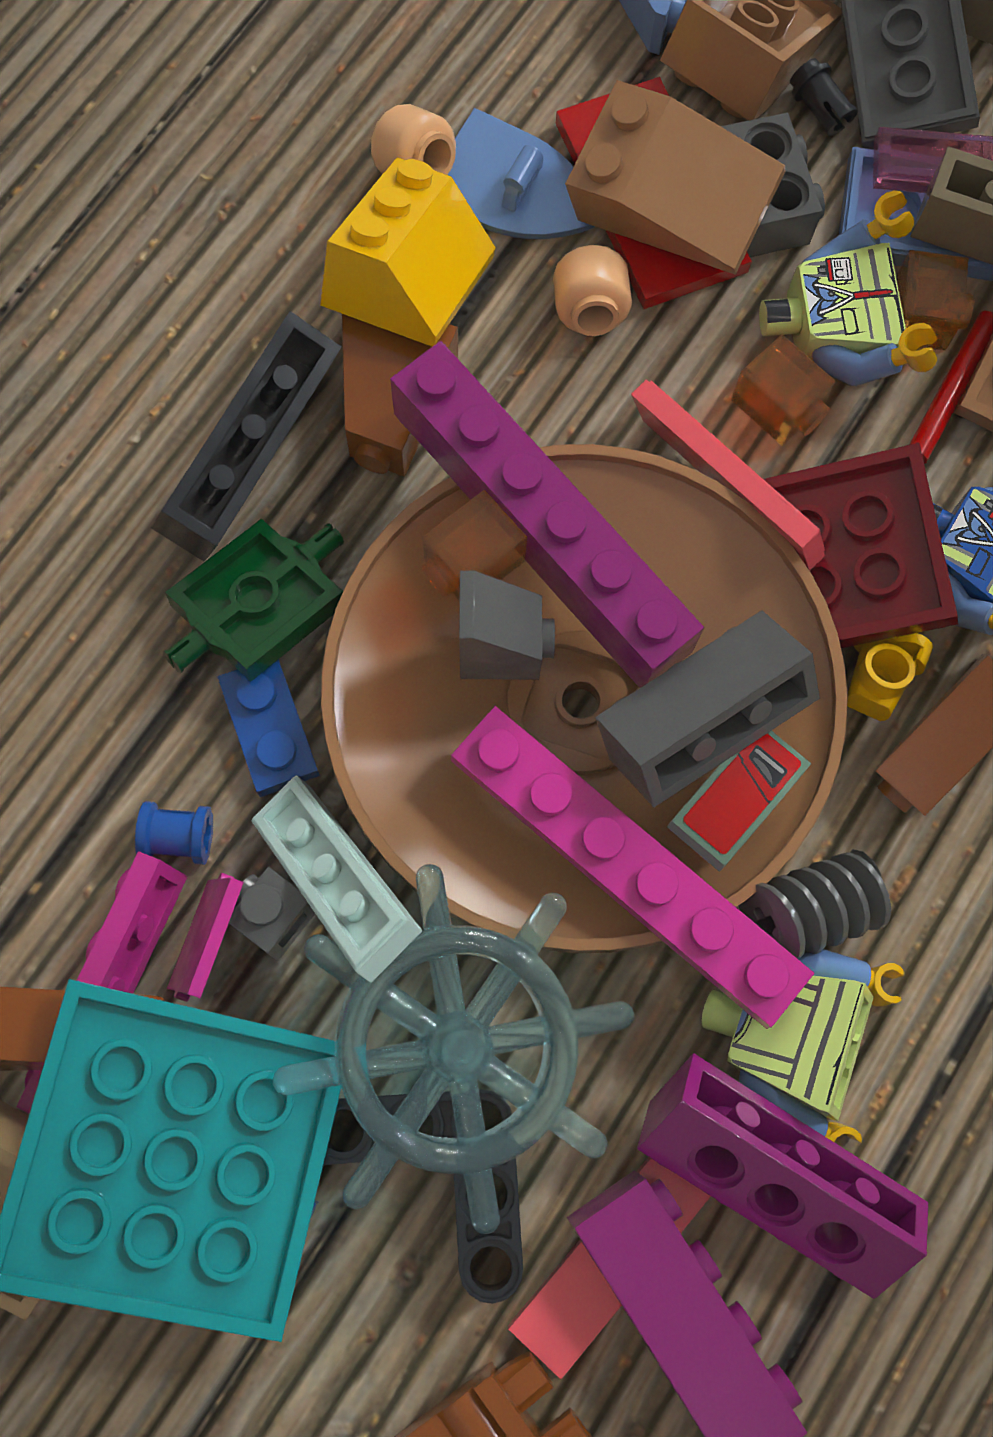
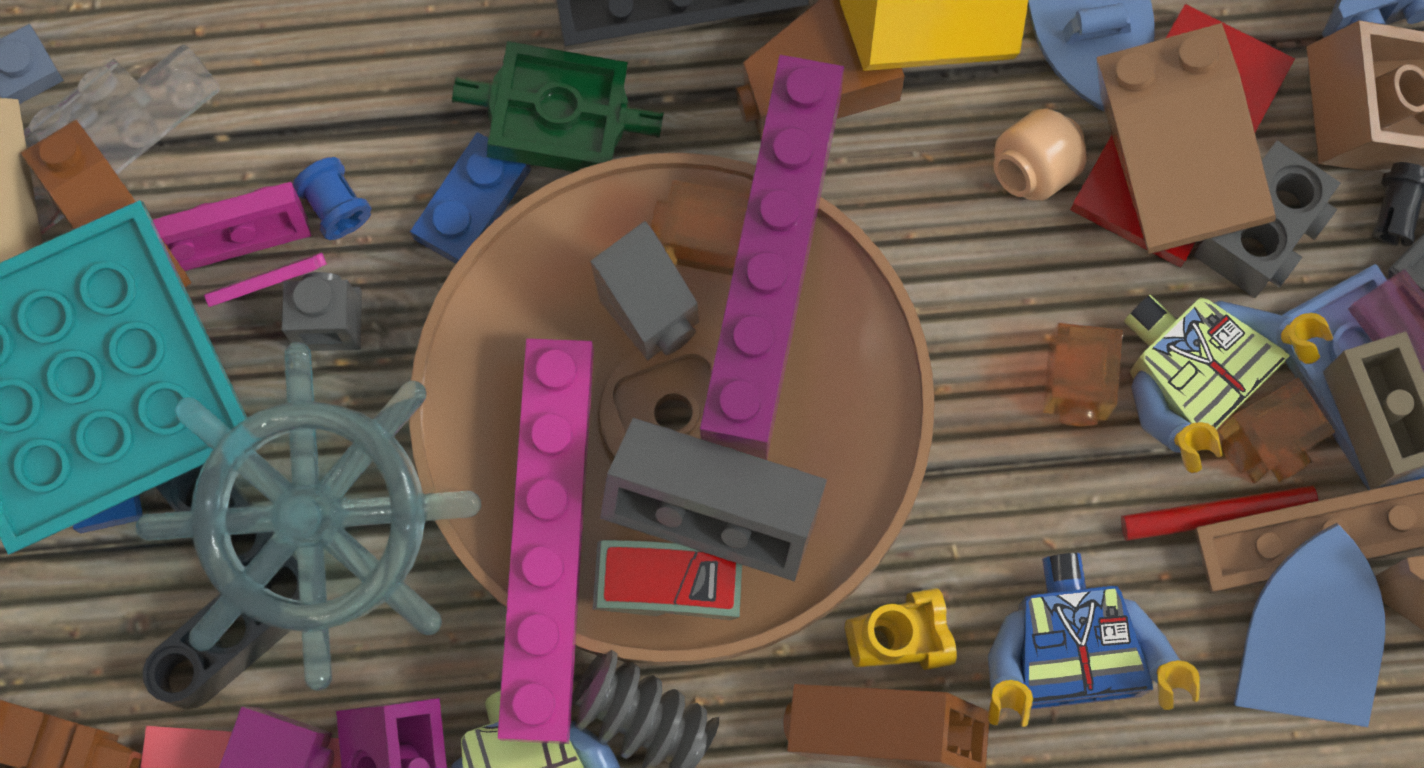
camera: 60 degrees right, 0 degrees up
(336, 879) = (370, 330): light aqua tile -> none
(721, 464) = (956, 382): coral tile -> none
(880, 542) = (985, 529): dark red plate -> none

